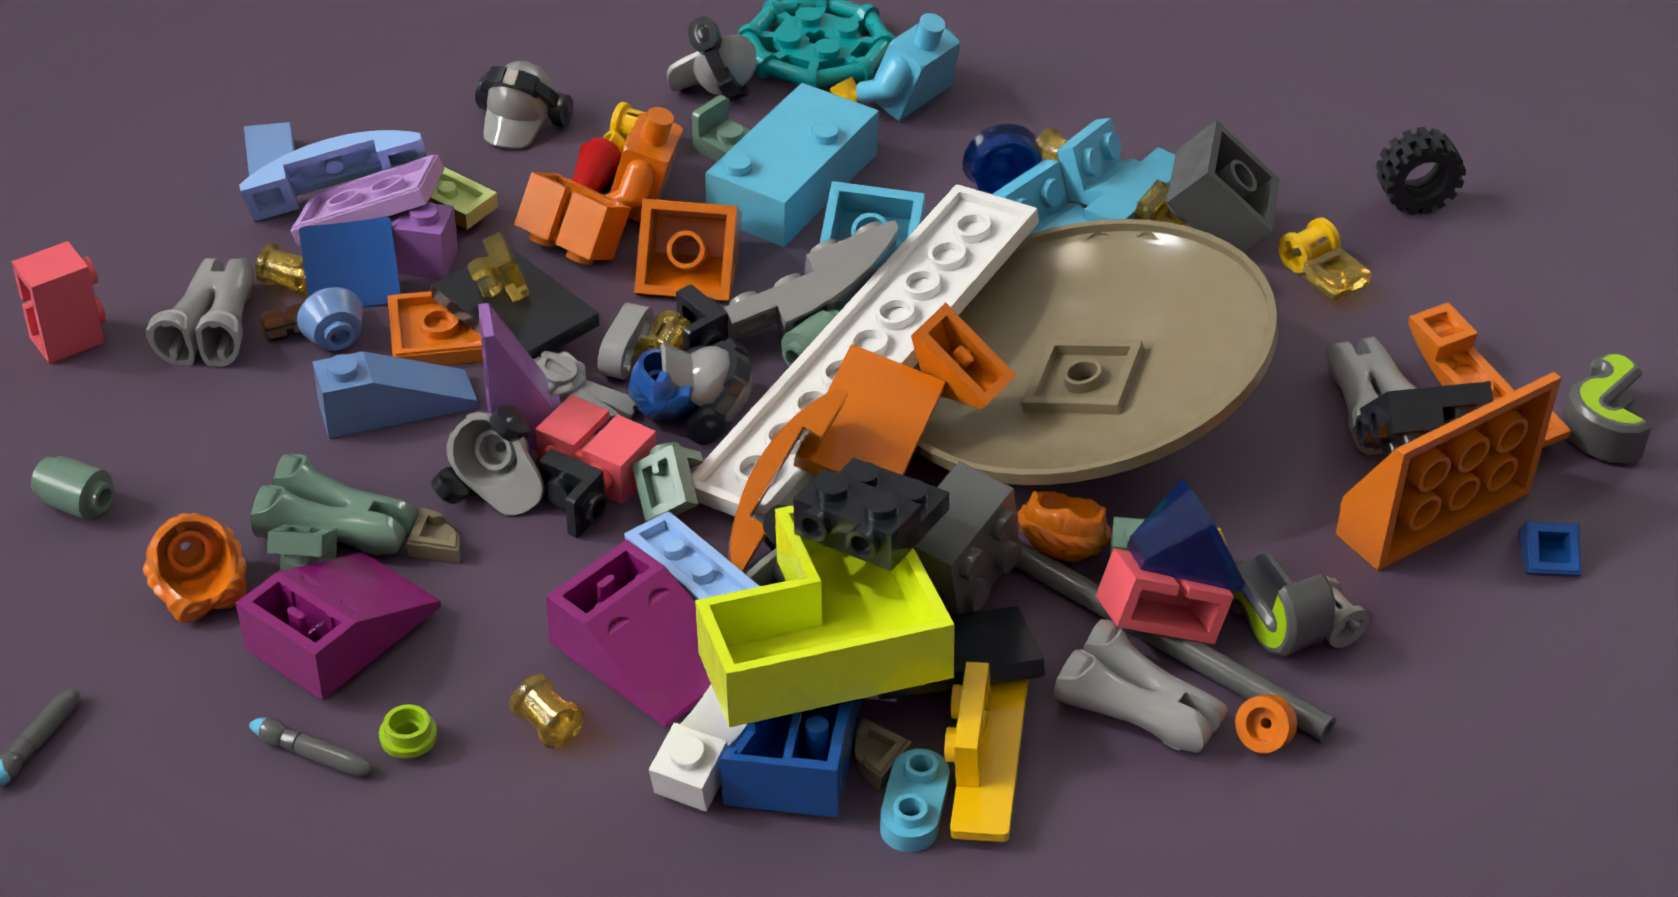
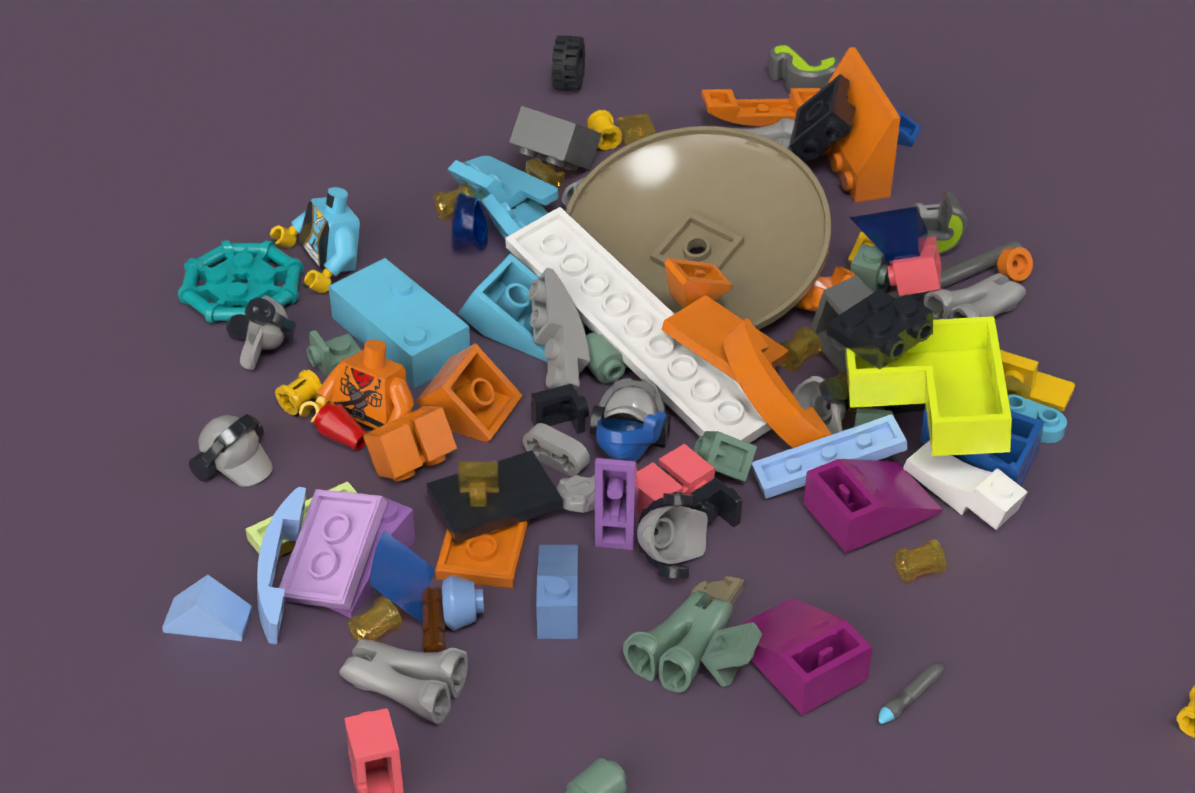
camera: 70 degrees left, 0 degrees up
(198, 577) = (721, 721): orange hair -> none
(407, 732) = (915, 636): lime plate -> none
(671, 334) = (558, 420): clear yellow bush -> none

